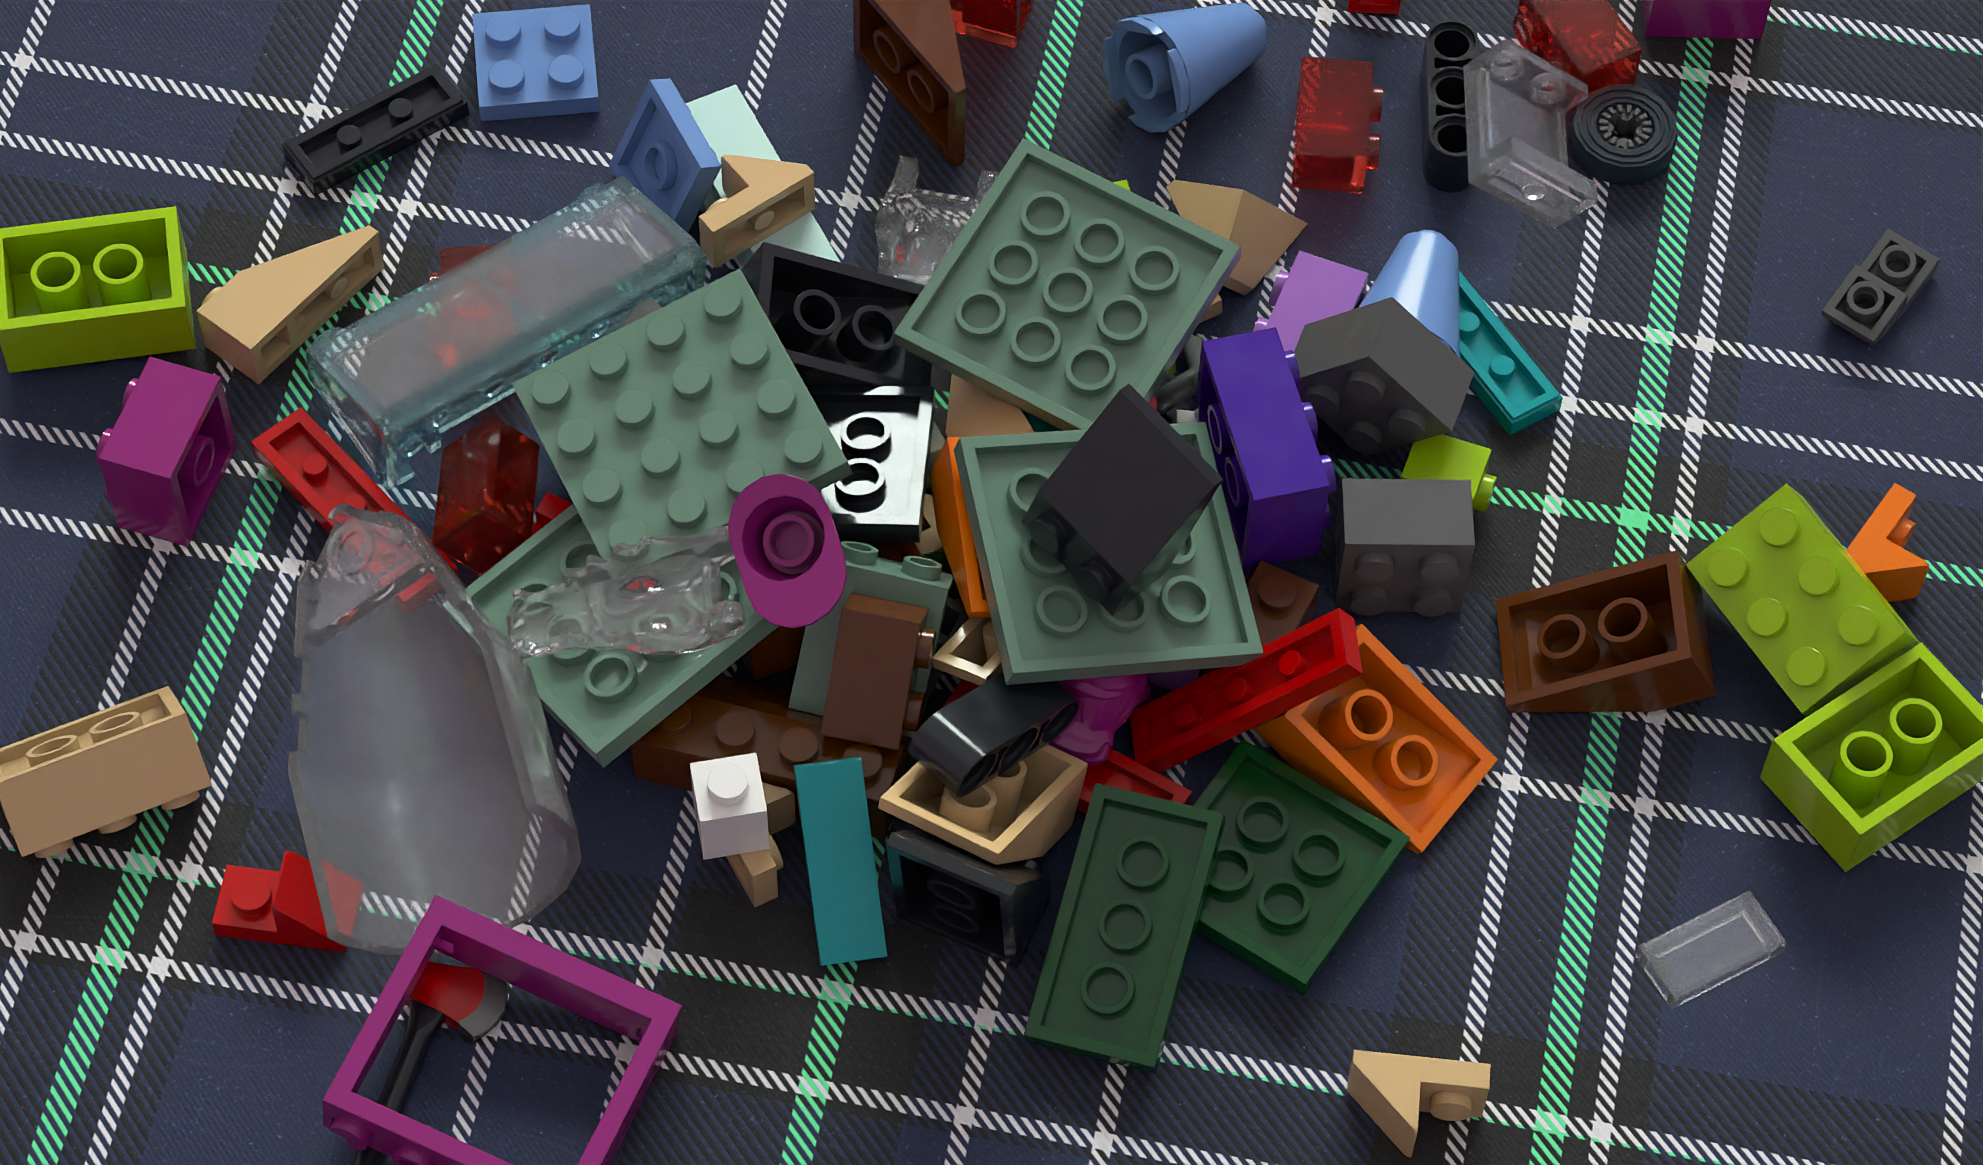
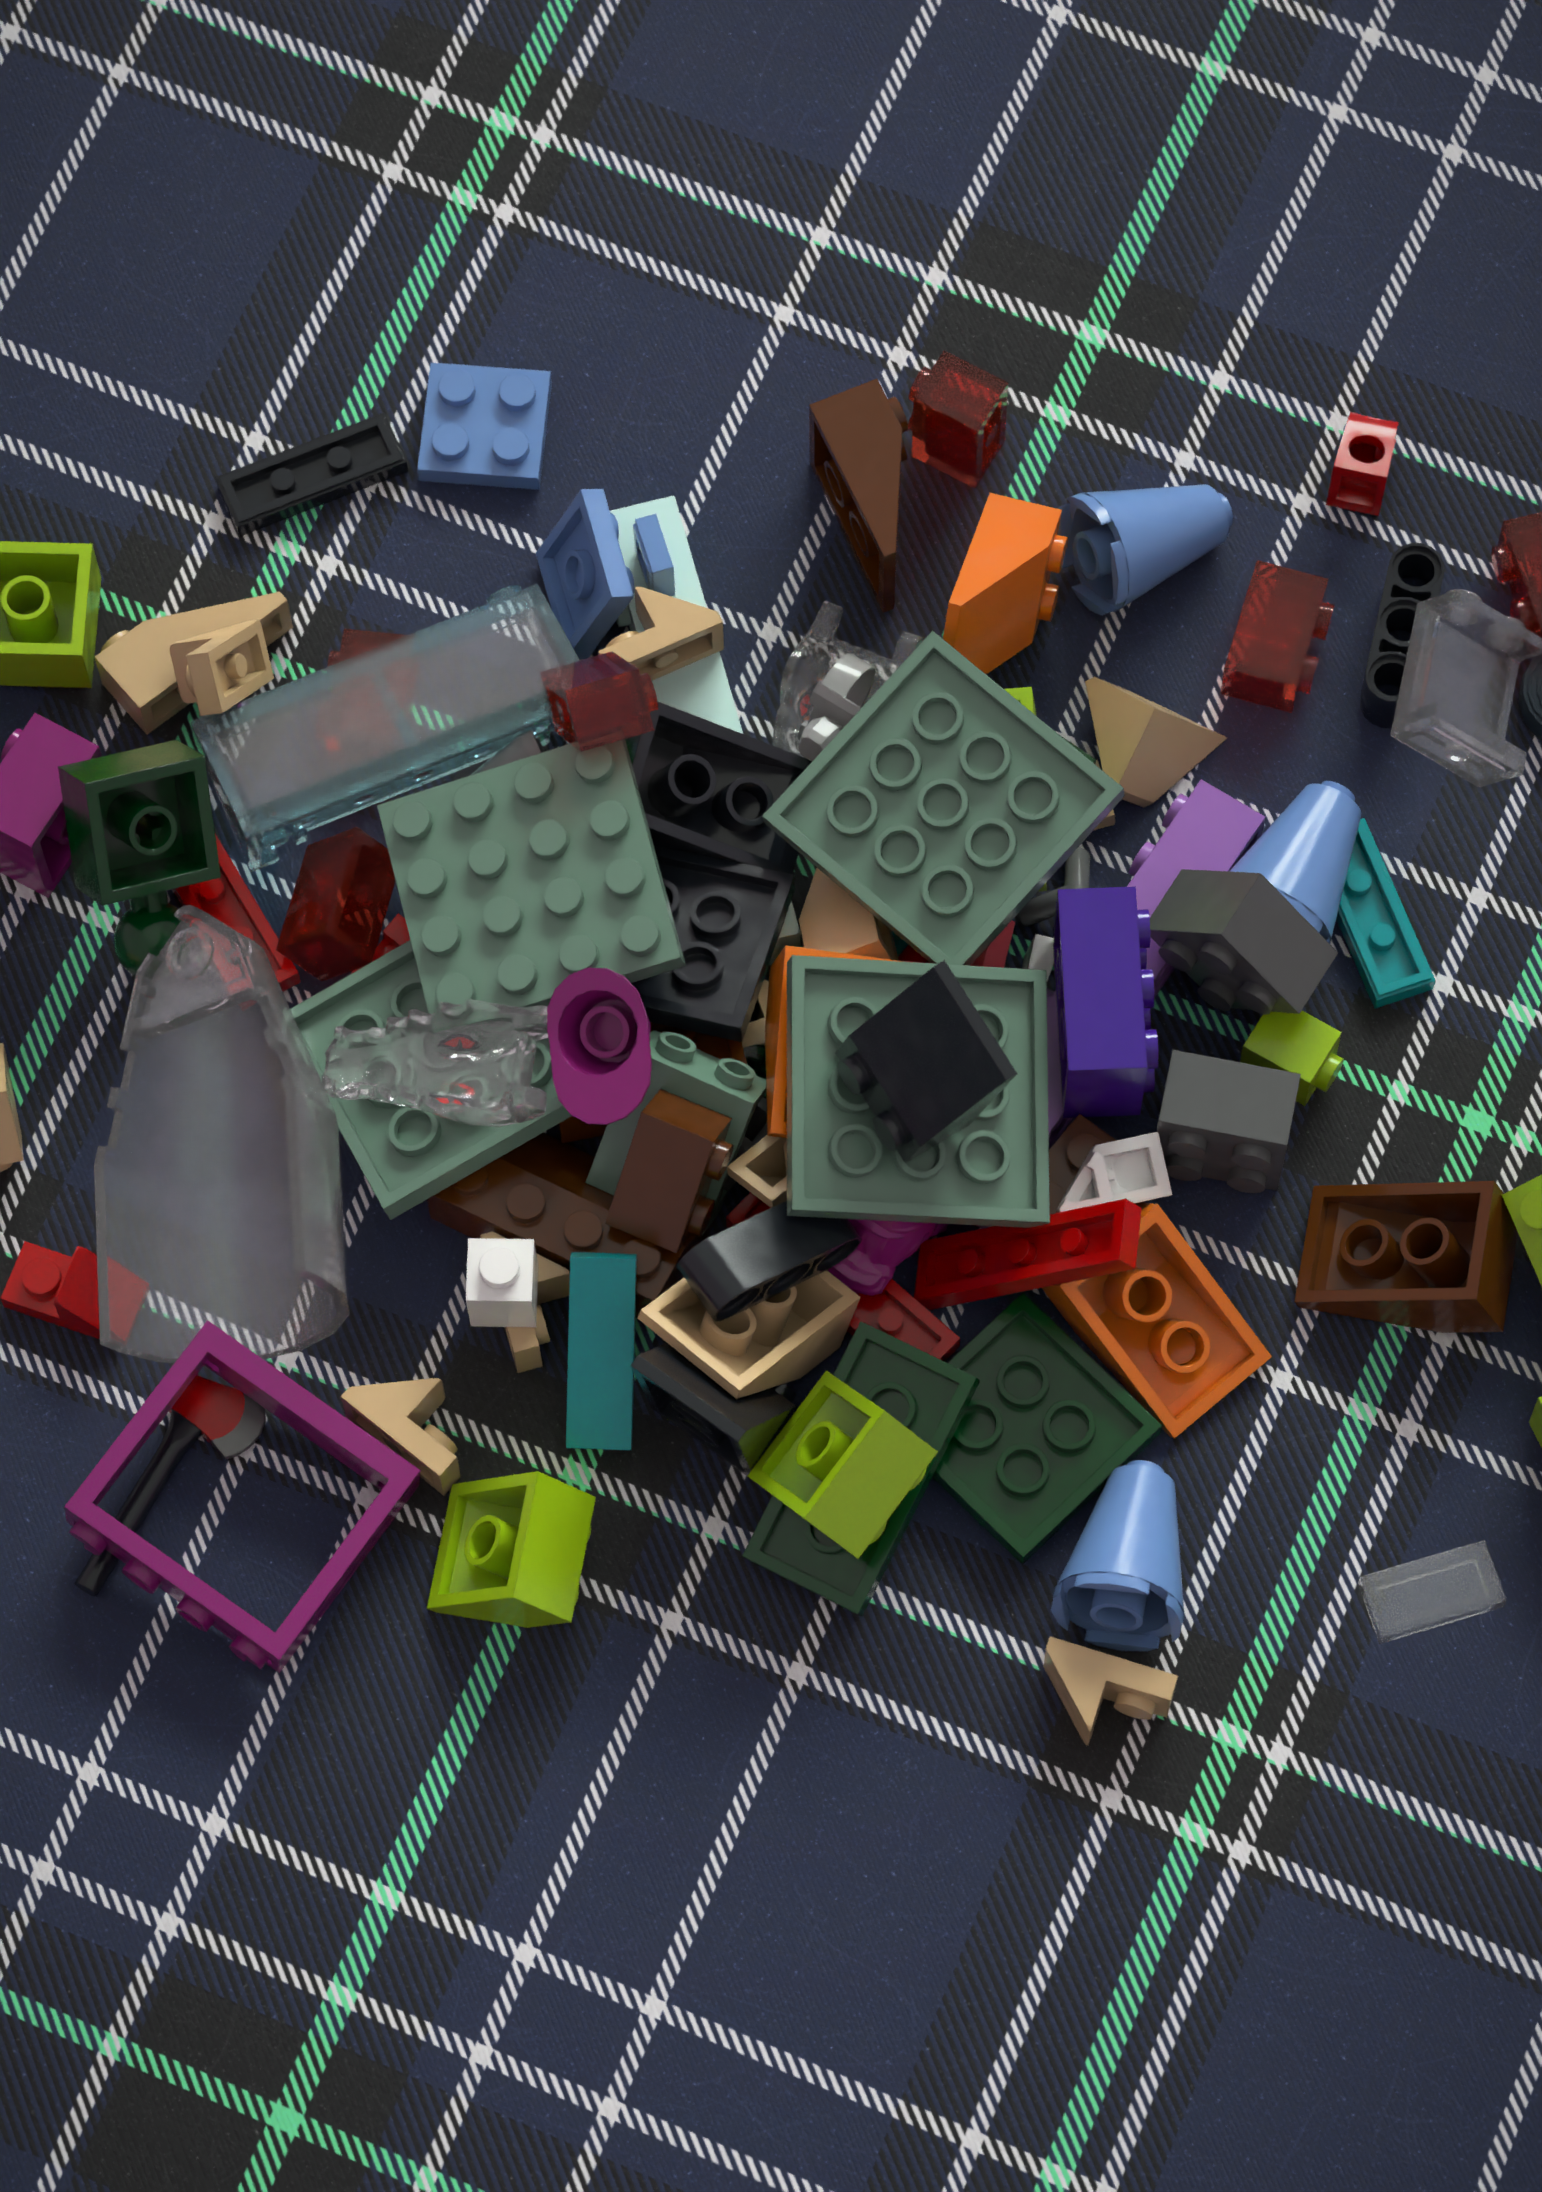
camera: 15 degrees right, 10 degrees up
(267, 476) = (136, 830): none -> dark green brick
(324, 297) = (221, 666): none -> tan slope
(648, 958) = (395, 1418): none -> tan slope
(714, 247) = (599, 700): none -> clear red brick
(729, 126) = (653, 555): none -> medium blue tile
(789, 1070) = (512, 1550): none -> lime slope
(937, 230) = (835, 703): none -> light grey piece
(1074, 94) = (1005, 581): none -> orange slope
(1111, 918) = (843, 1464): none -> lime slope
(1315, 595) = (1118, 1171): none -> white slope
(1411, 974) = (1126, 1564): none -> medium blue cone

